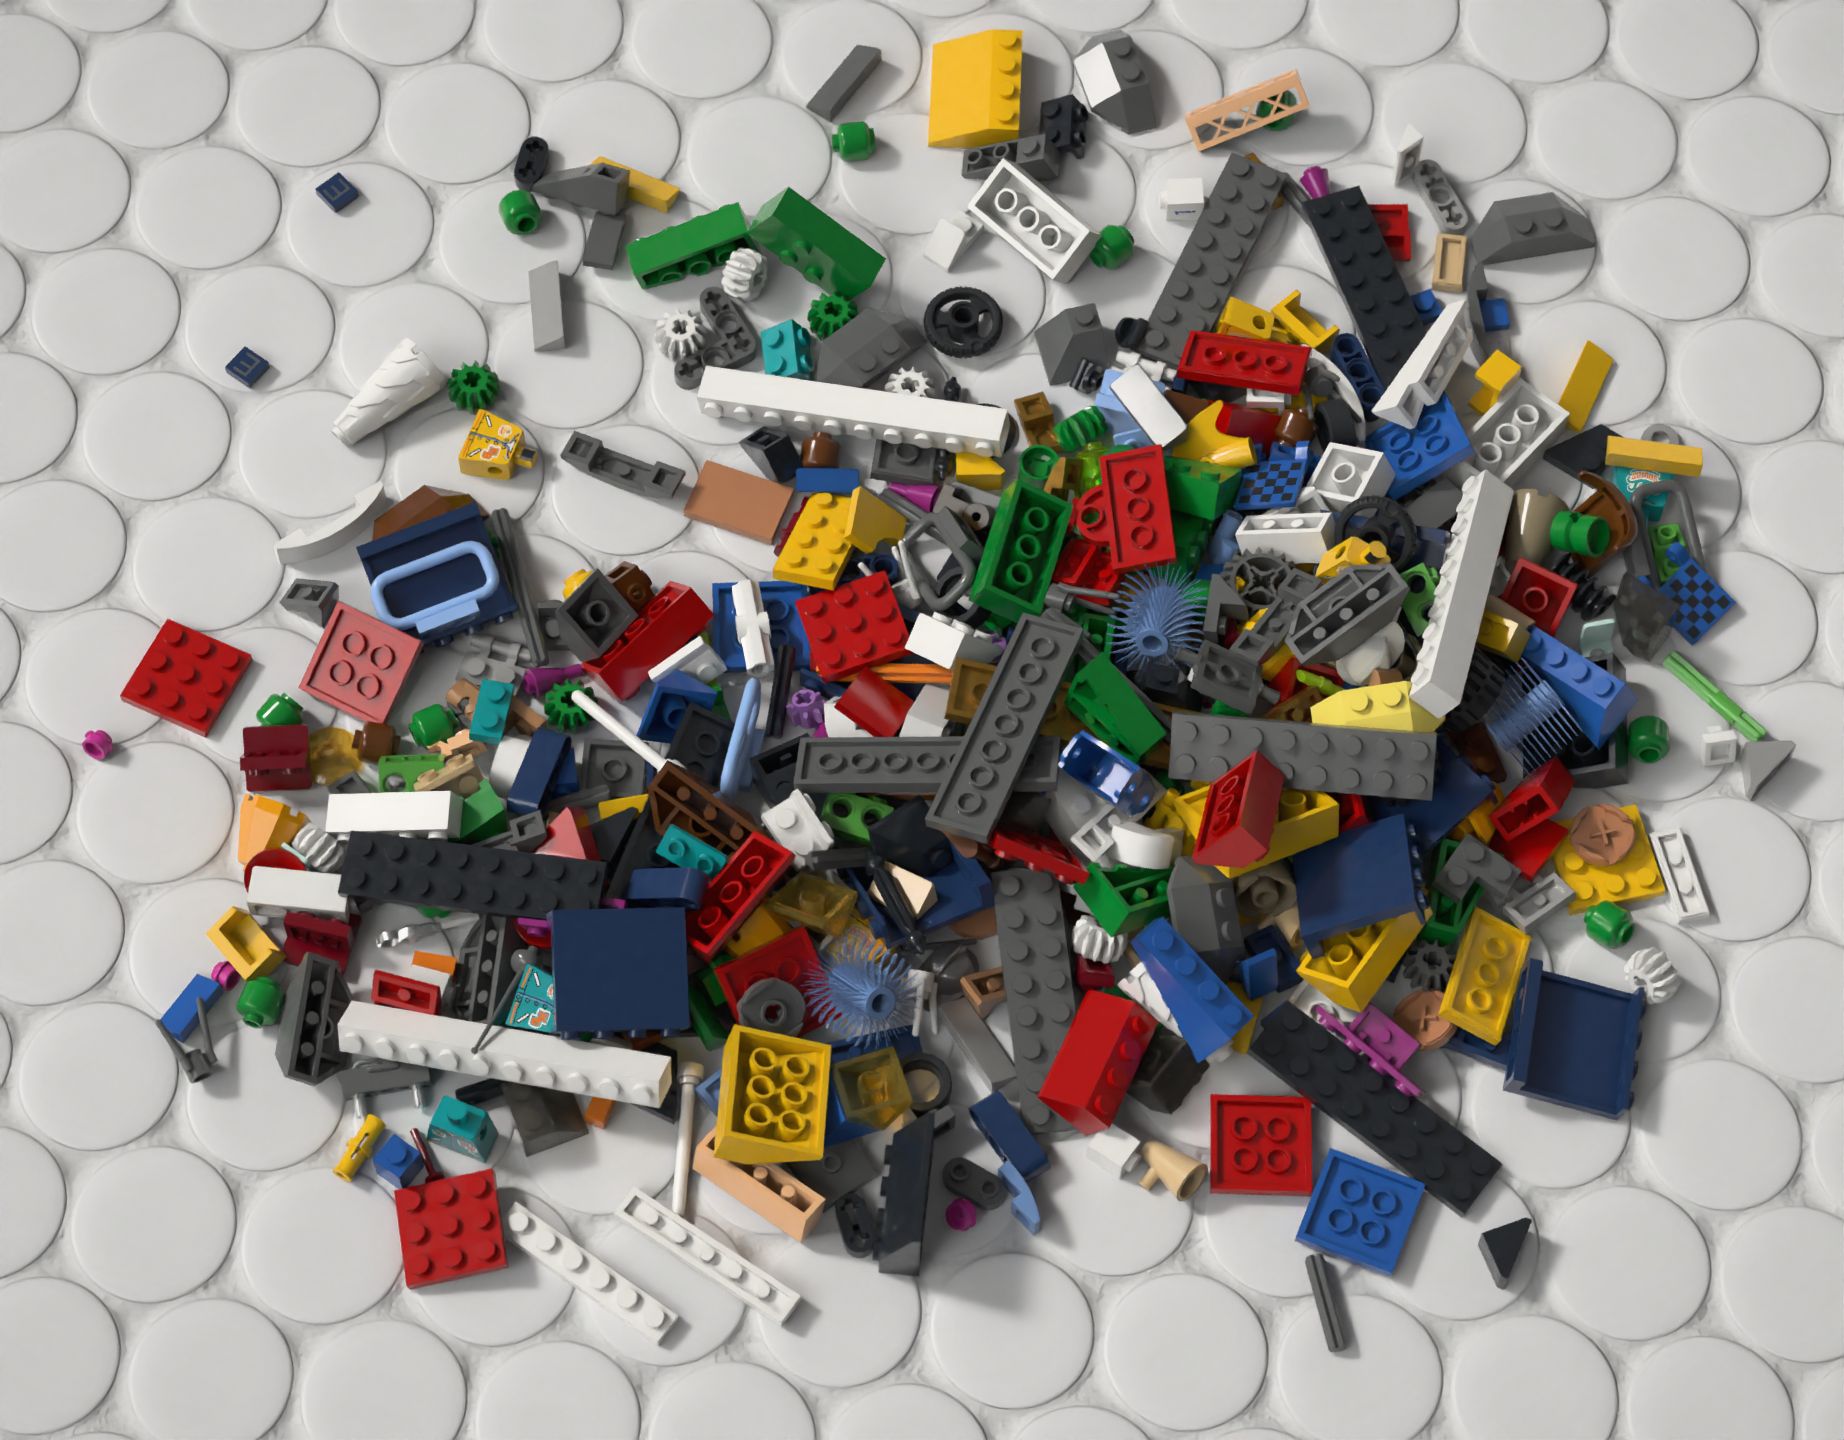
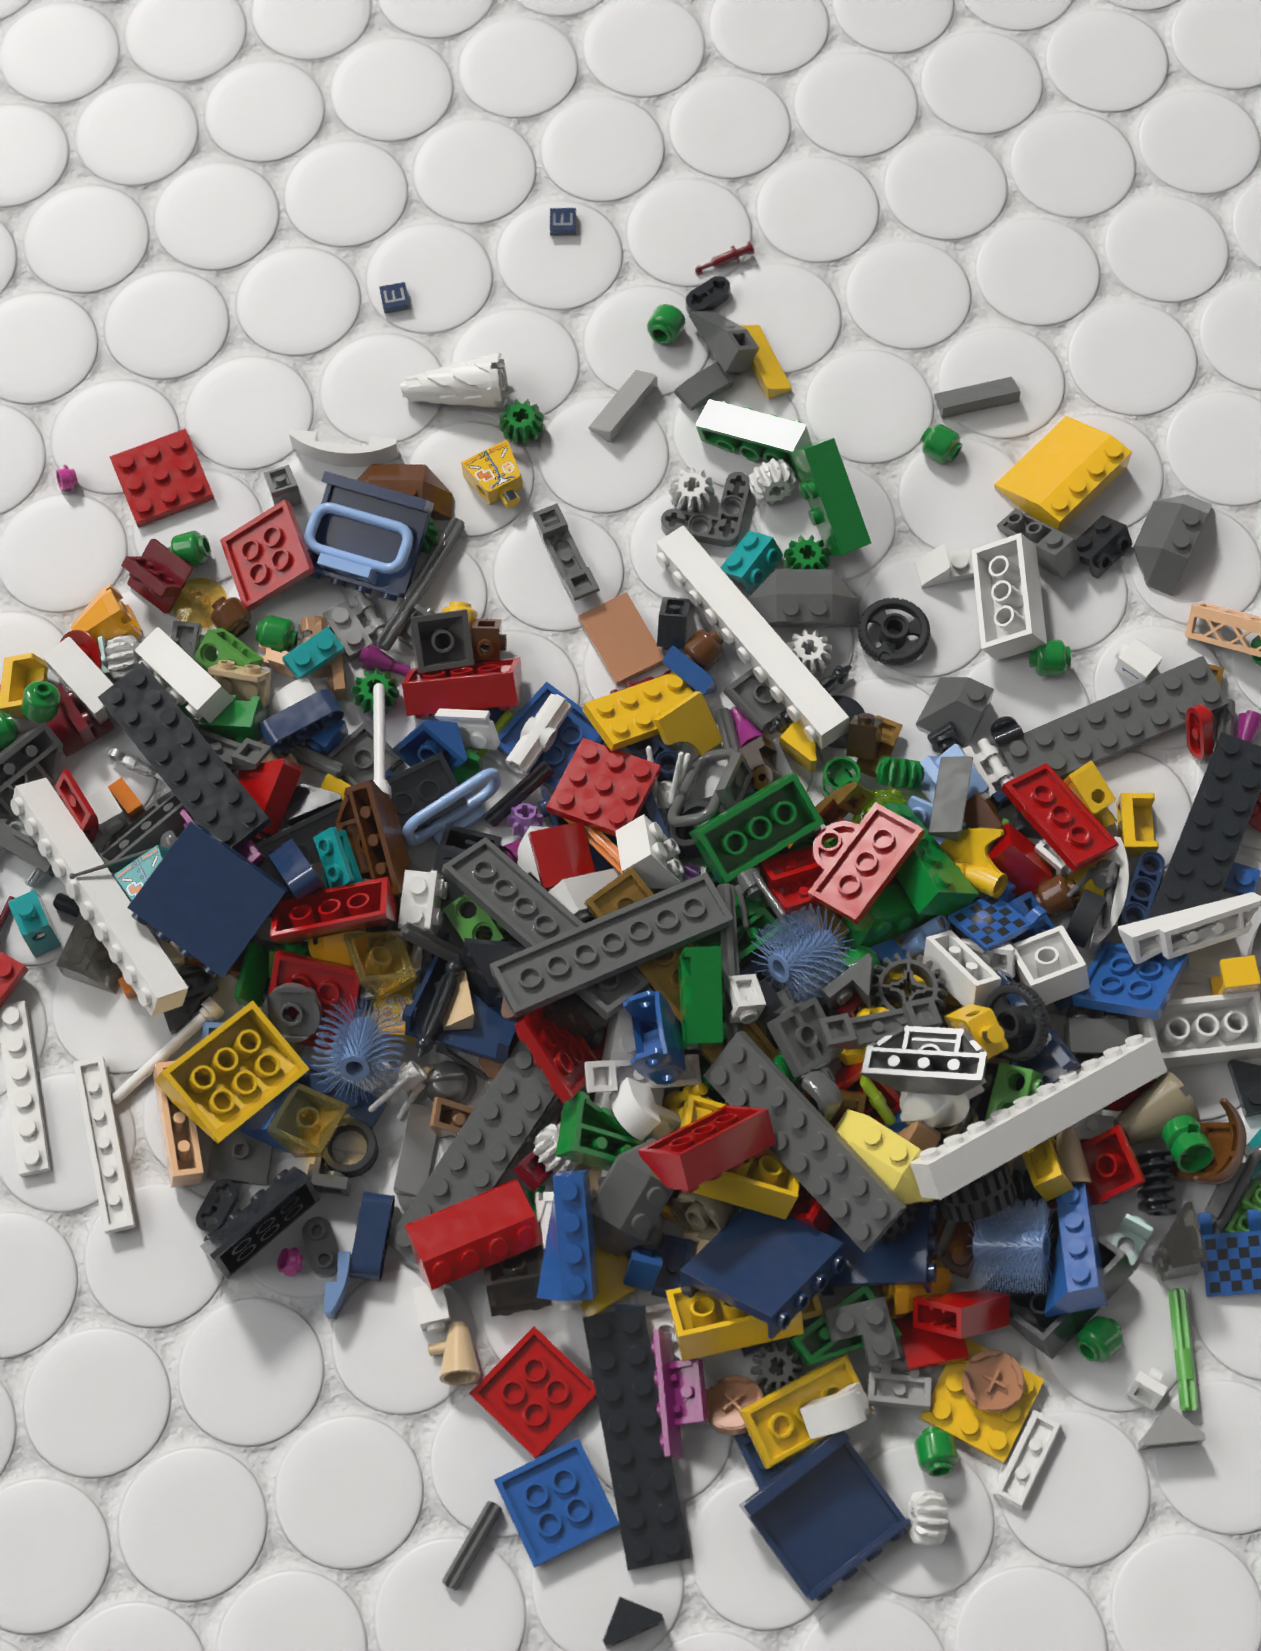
camera: 45 degrees right, 5 degrees up
(288, 937) = (40, 701): none -> green head
(520, 112) = (727, 257): none -> dark red piece
(1027, 420) = (864, 736): none -> dark brown brick
(1152, 683) = (745, 998): none -> white bracket
(1282, 704) = (824, 1092): none -> dark grey hair
(1285, 214) = (1199, 731): none -> red plate
(1513, 951) = (836, 1412): none -> white brick

